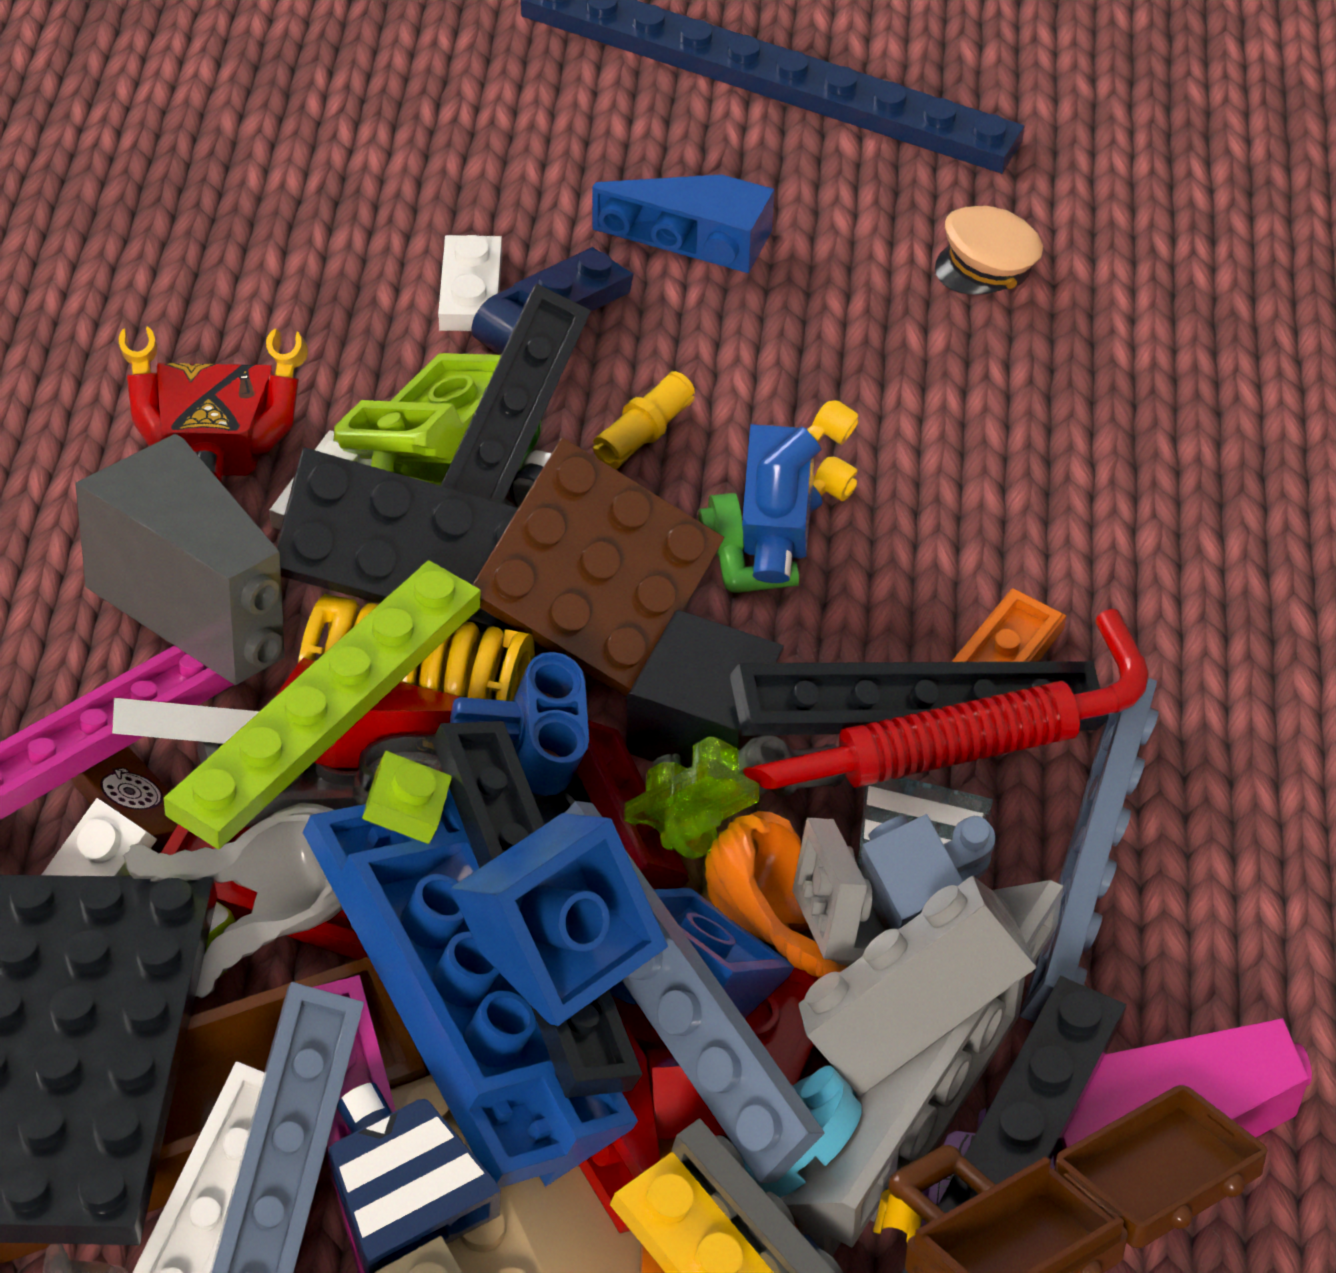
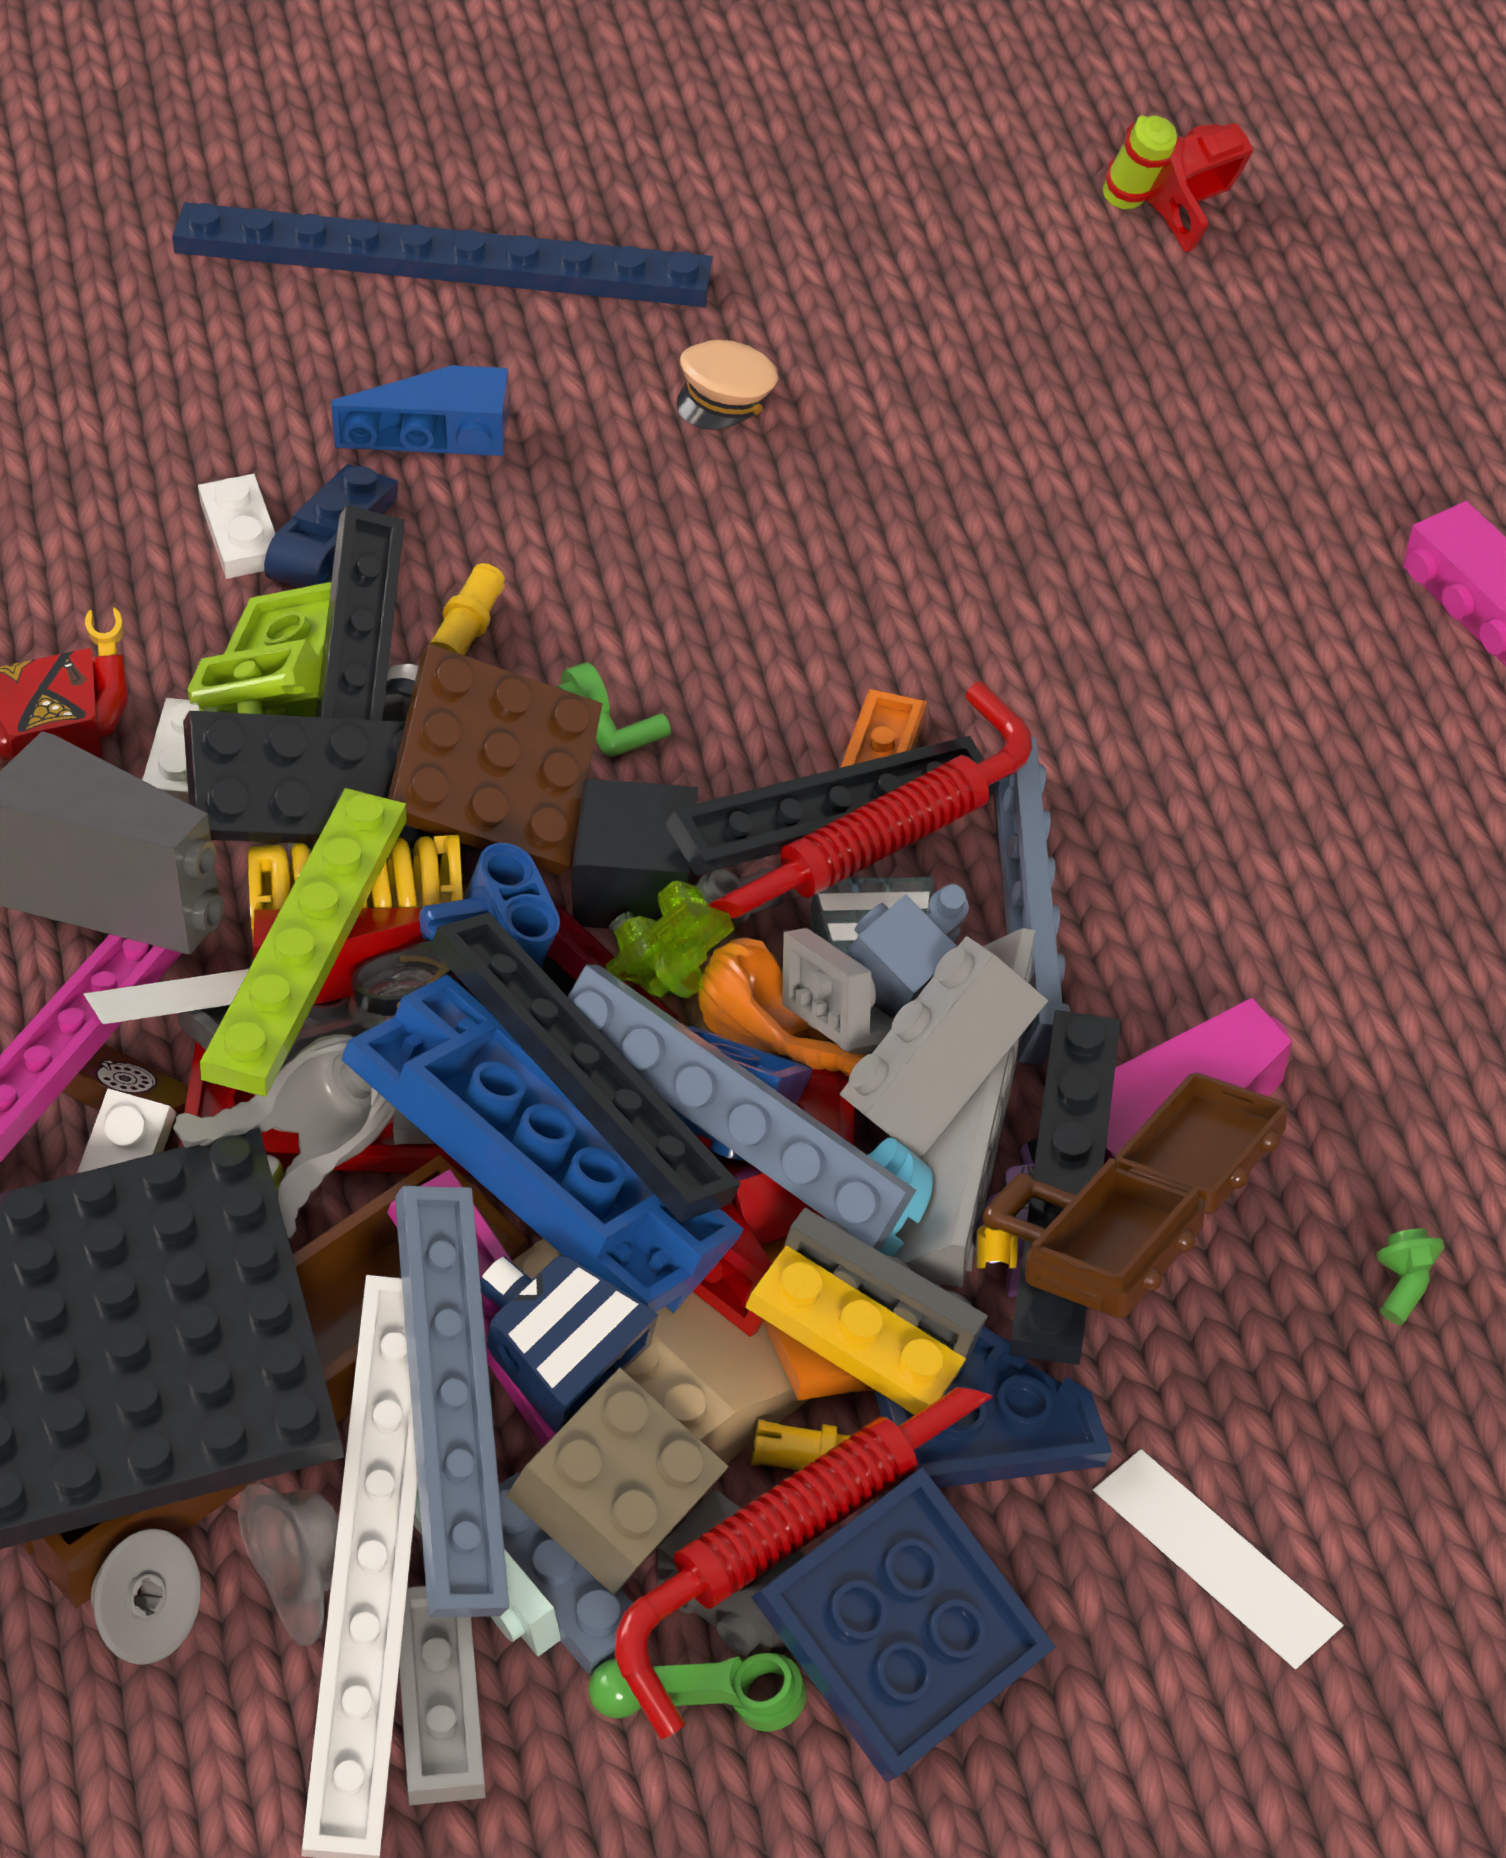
camera: 20 degrees left, 0 degrees up
(407, 797) = (433, 1000): lime plate -> none
(561, 914) = (624, 1060): blue slope -> none
(784, 489) = (632, 644): blue torso -> none

